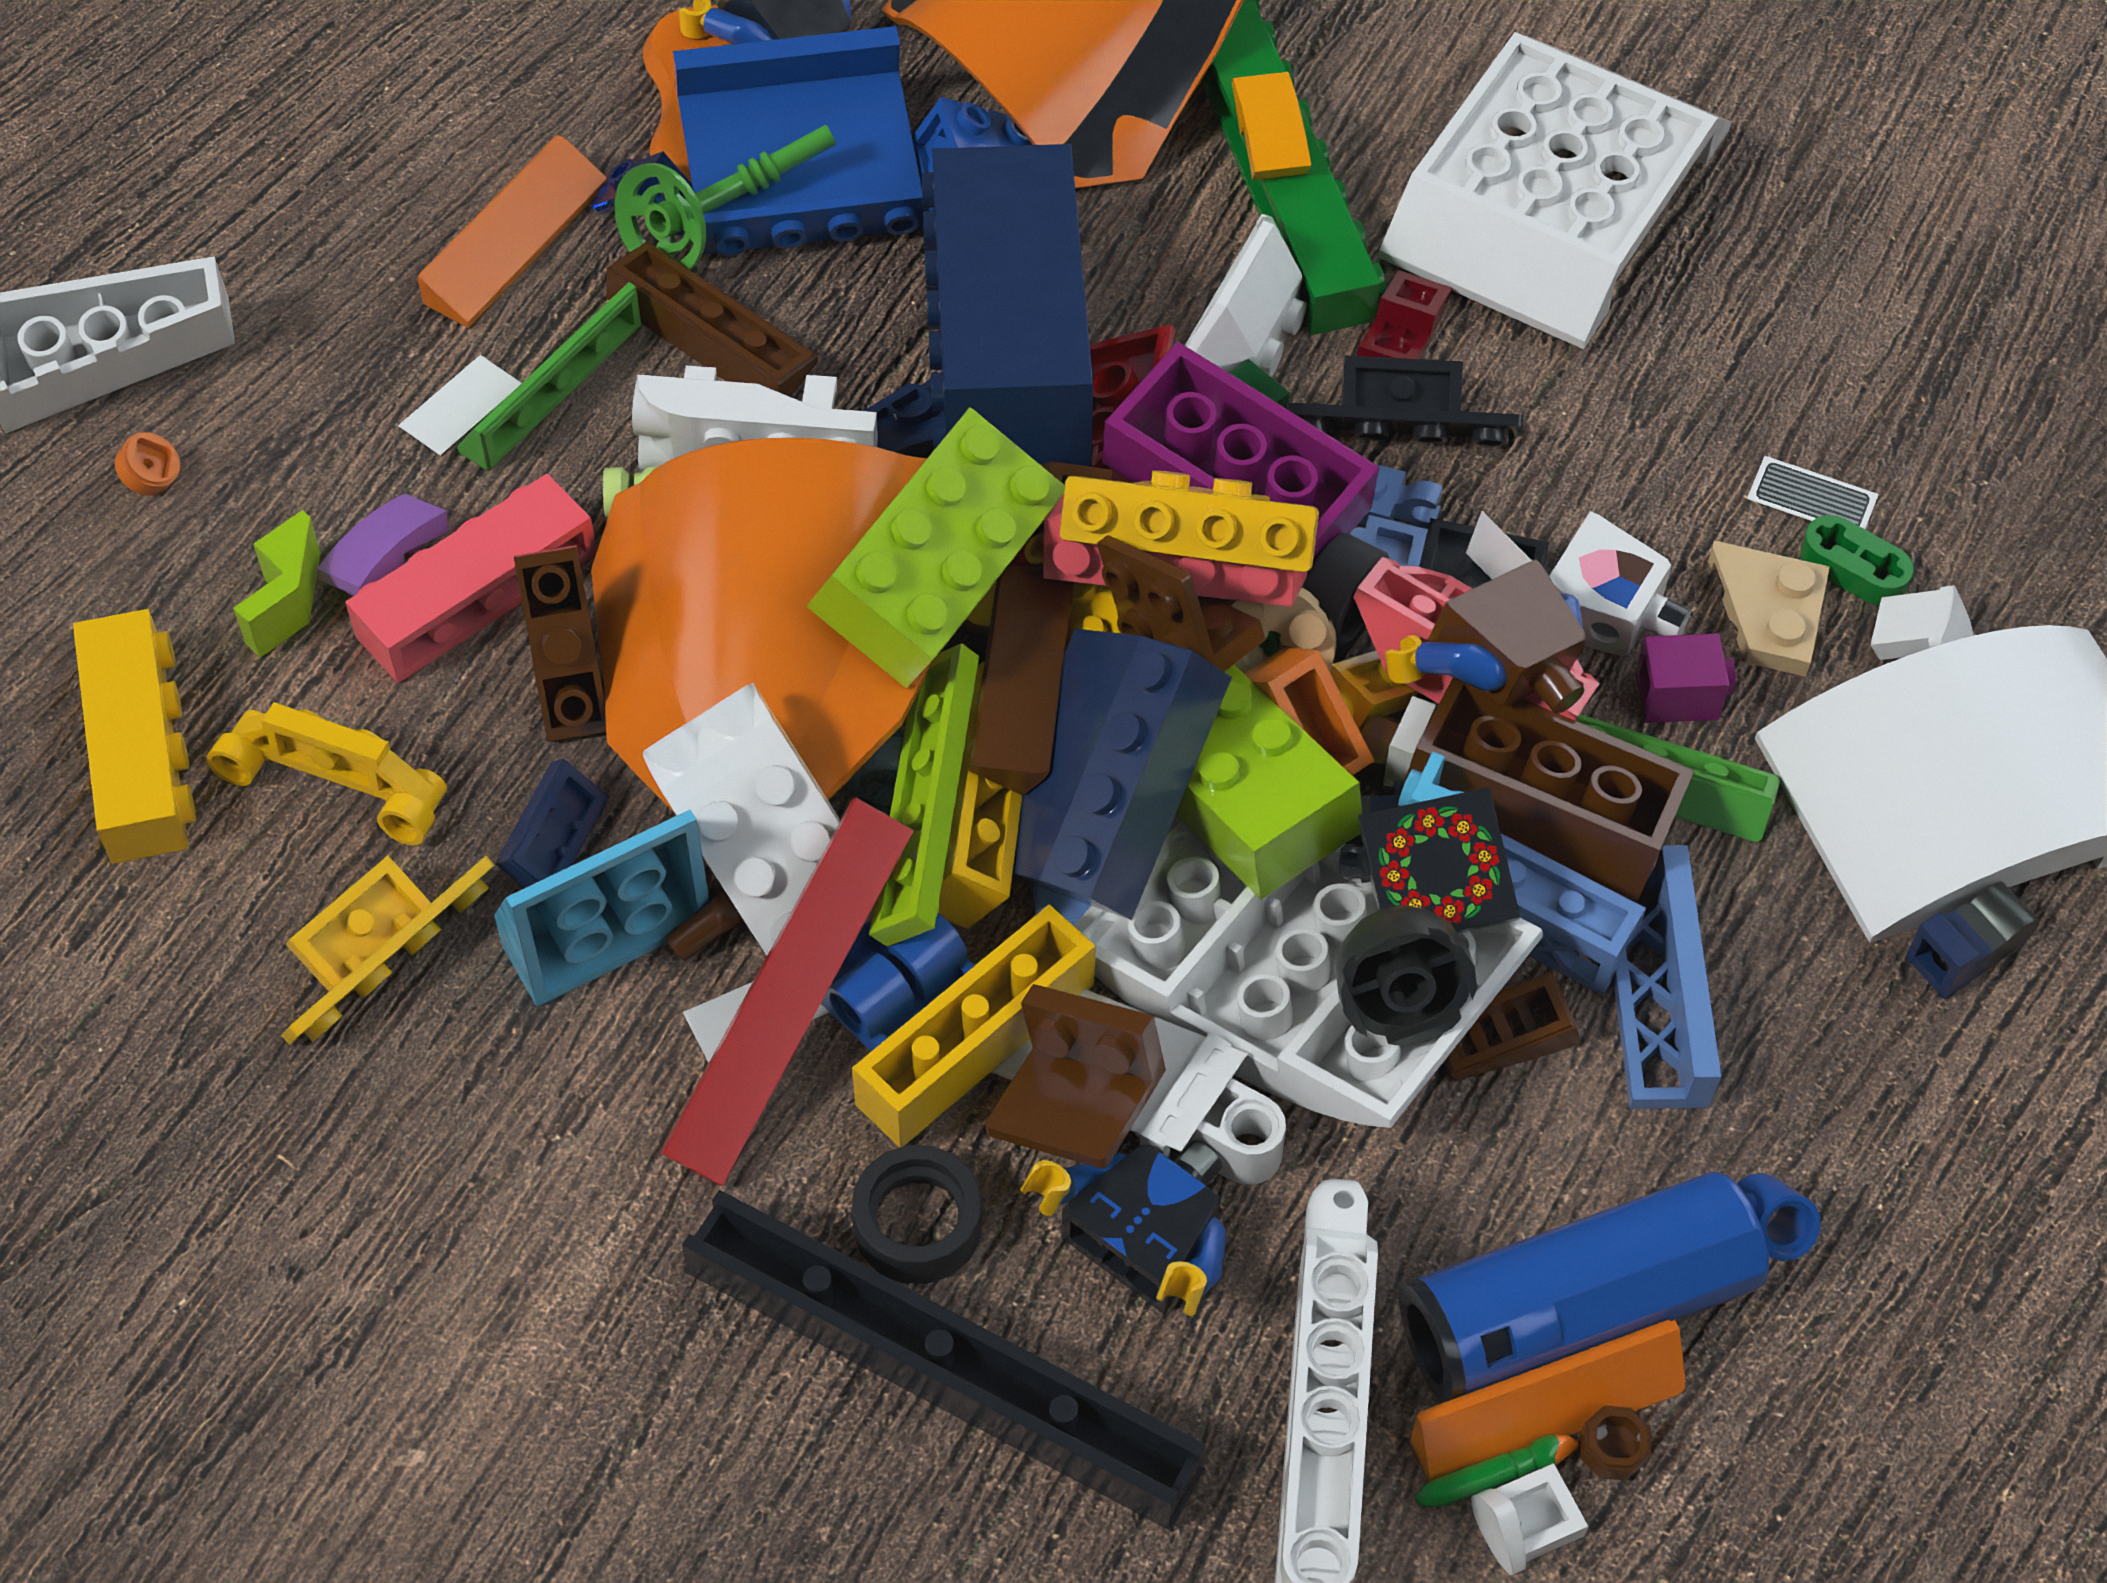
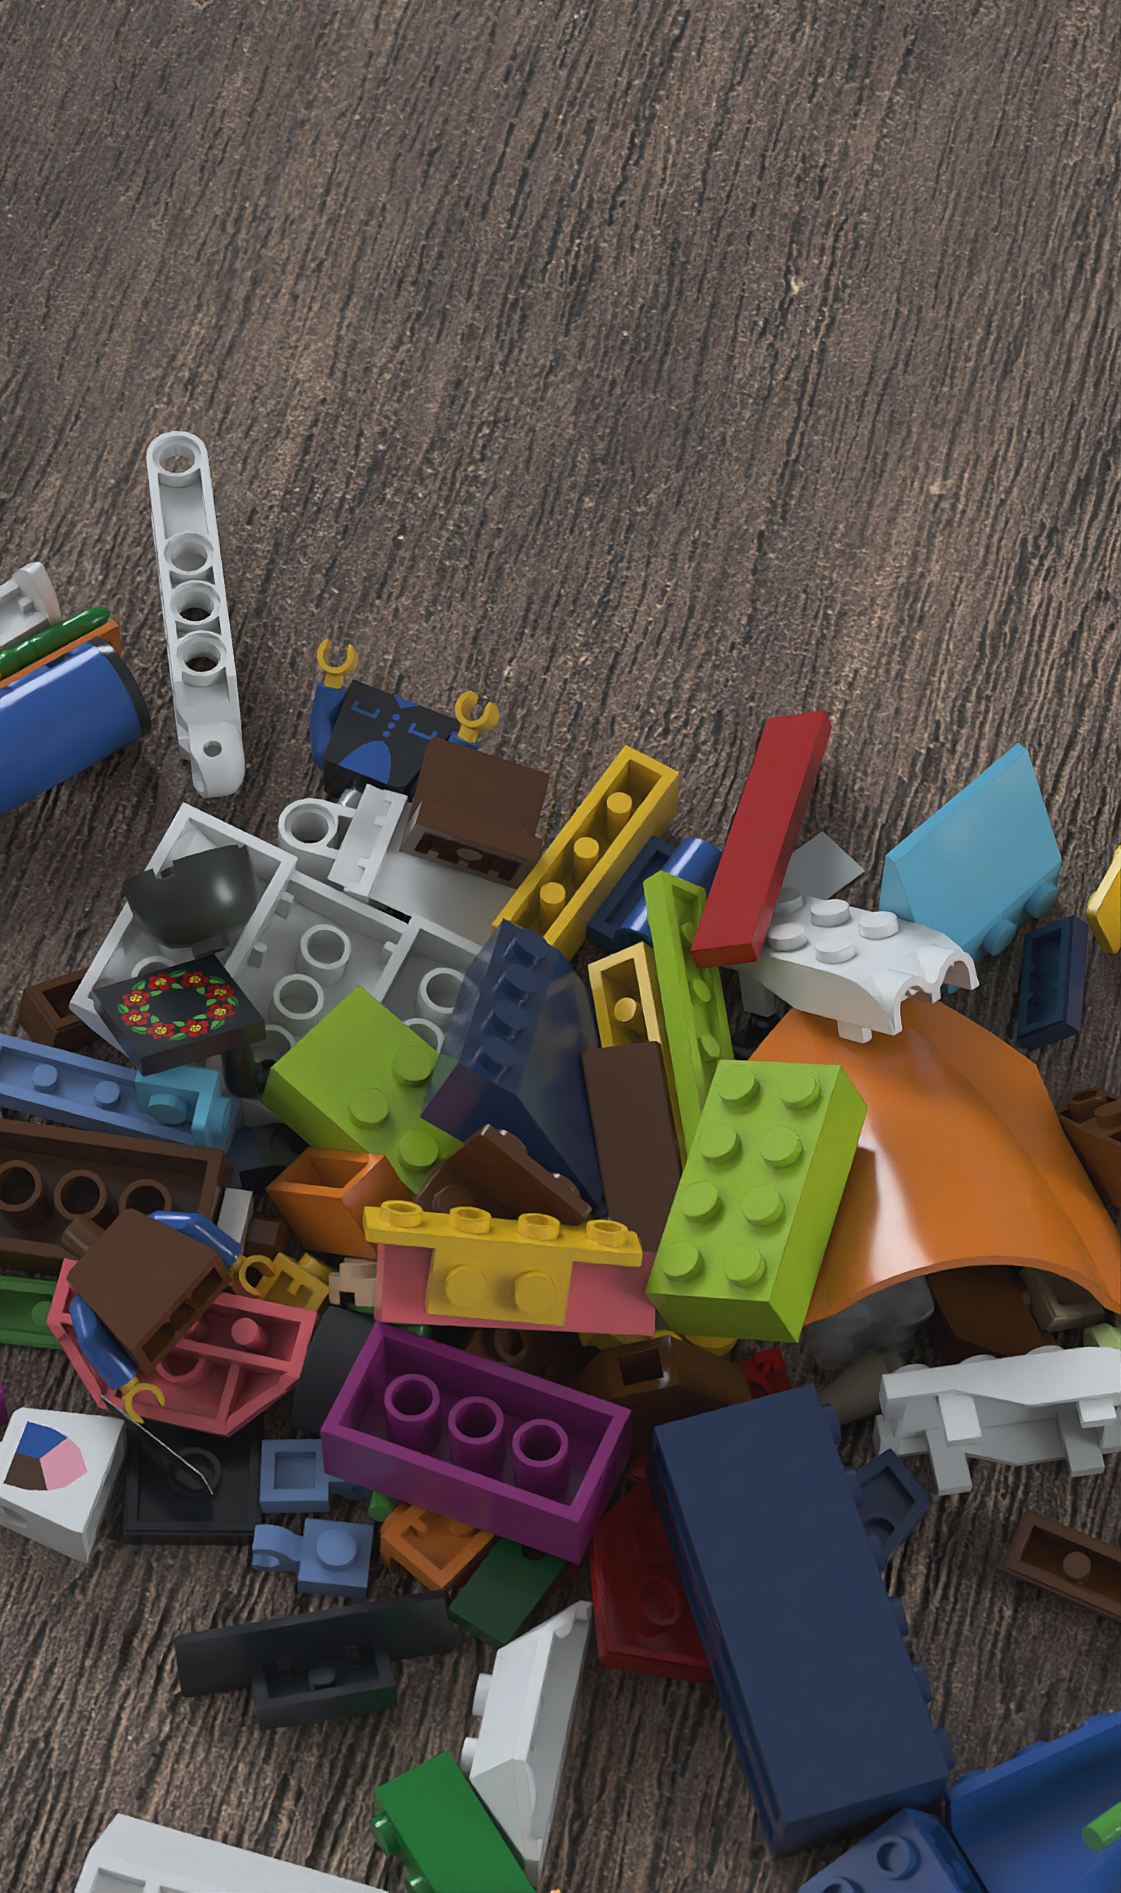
camera: 165 degrees right, 0 degrees up
(908, 1166) = (579, 688): black tyre -> none
(946, 1360) = (534, 617): black tile -> none
(1406, 318) = (338, 1796): dark red slope -> none

